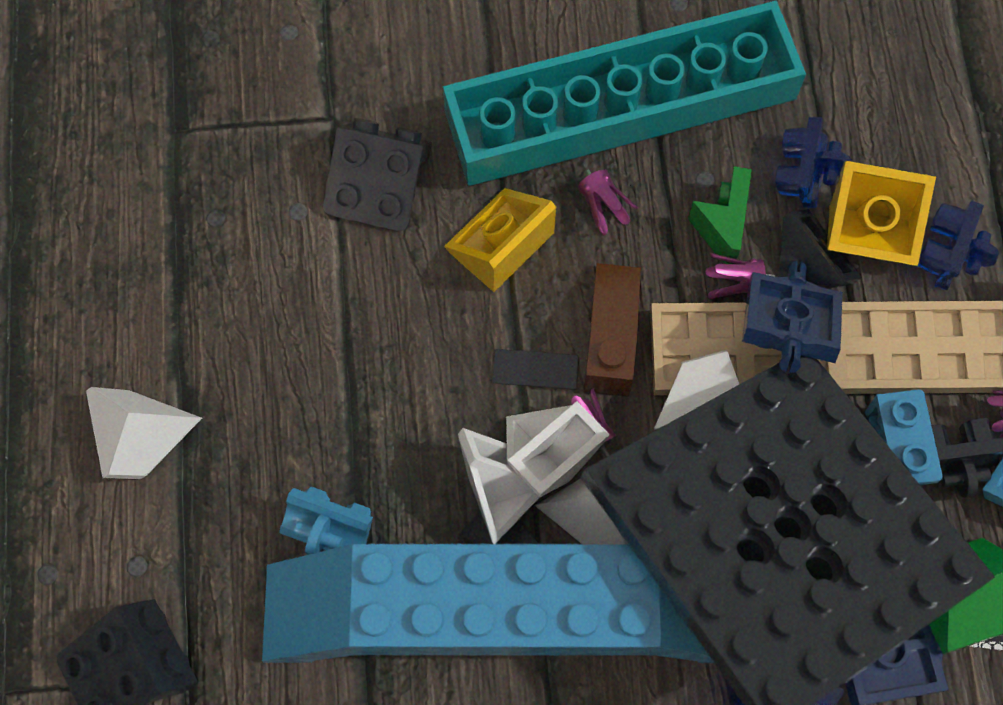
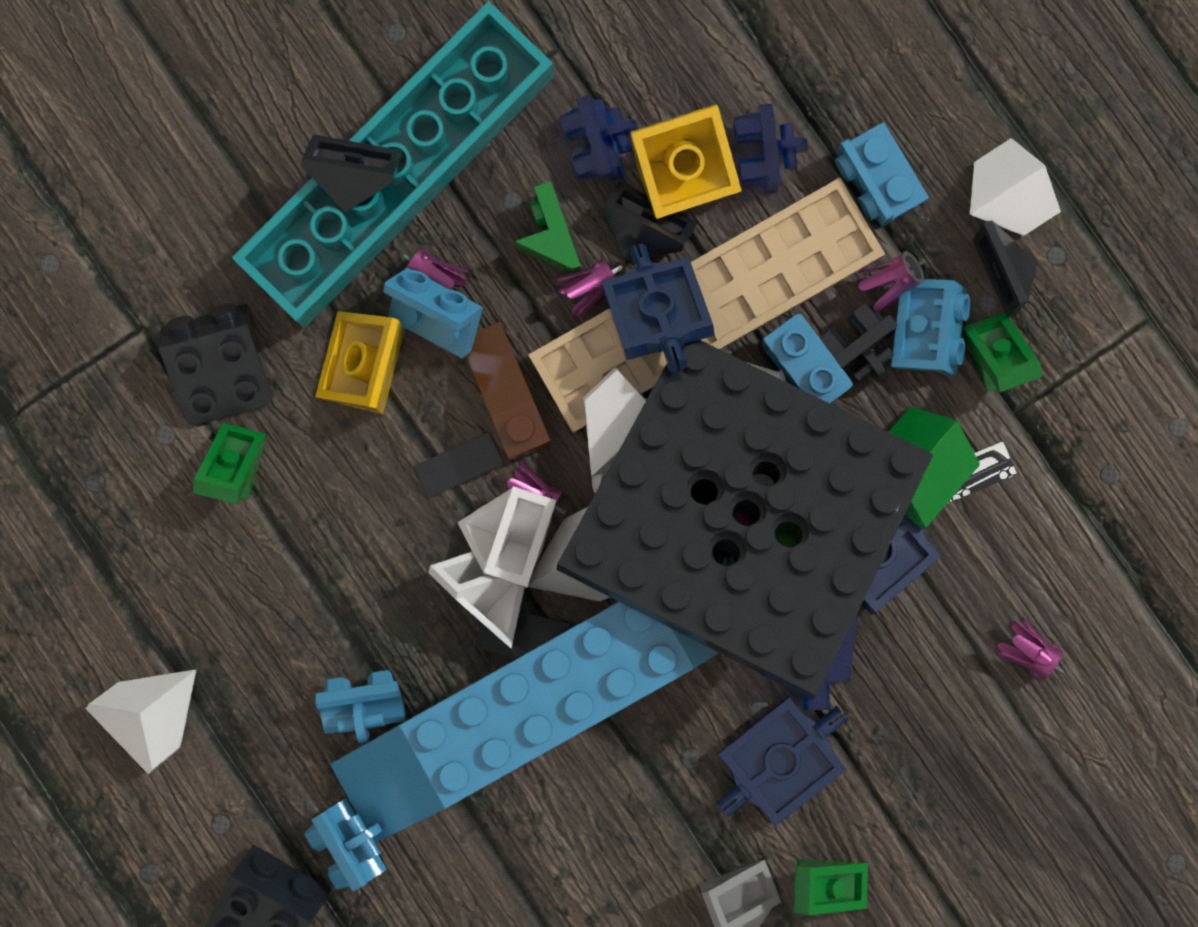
camera: 25 degrees left, 15 degrees up
(240, 646) = (349, 845): none -> dark azure hips
(338, 259) = (230, 464): none -> green slope
(583, 66) = (350, 169): none -> black slope
(590, 223) = (433, 311): none -> dark azure bracket

